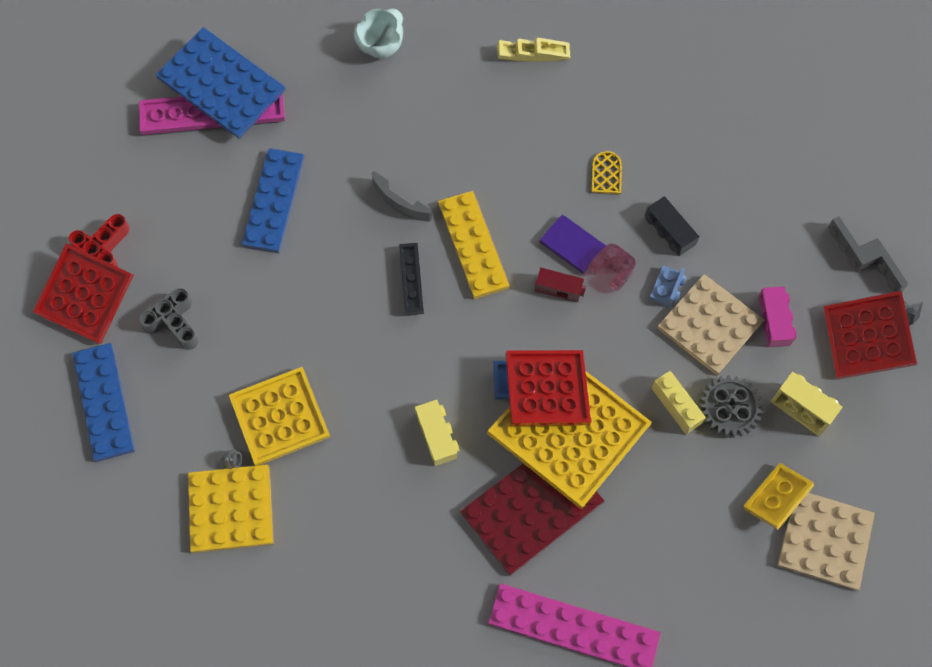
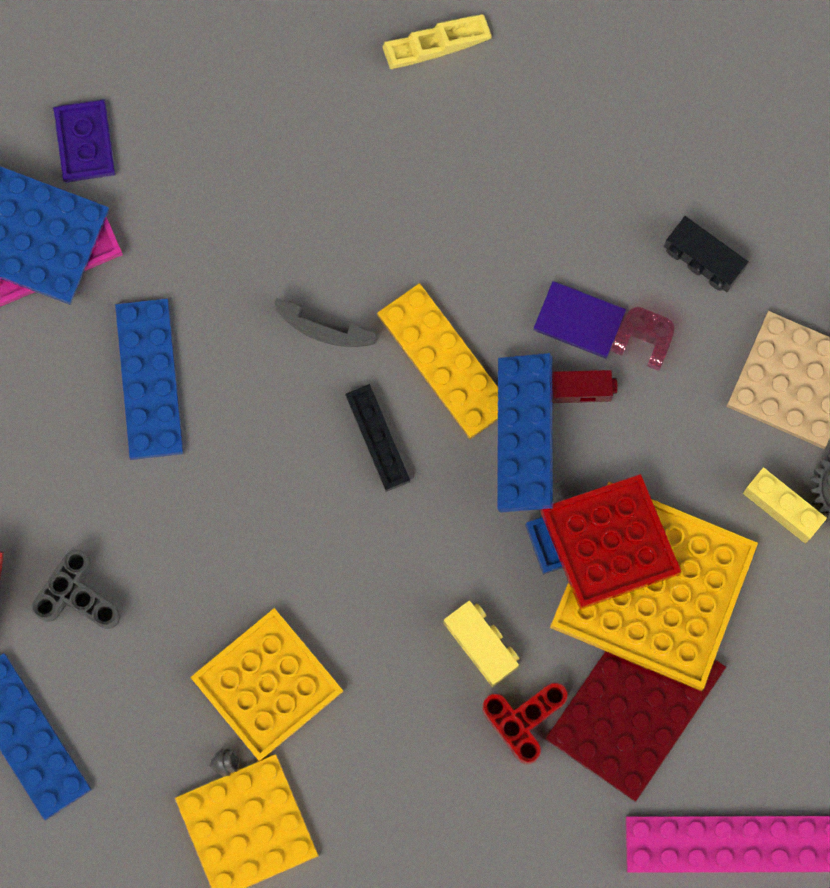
camera: 15 degrees left, 10 degrees up
(286, 48) = (84, 141): none -> dark purple tile
(380, 32) = (214, 83): light aqua piece -> none
(448, 496) = (522, 721): none -> red beam
(511, 301) = (525, 433): none -> blue plate
(604, 191) = (600, 227): yellow window -> none
(667, 285) = (724, 342): medium blue bracket -> none

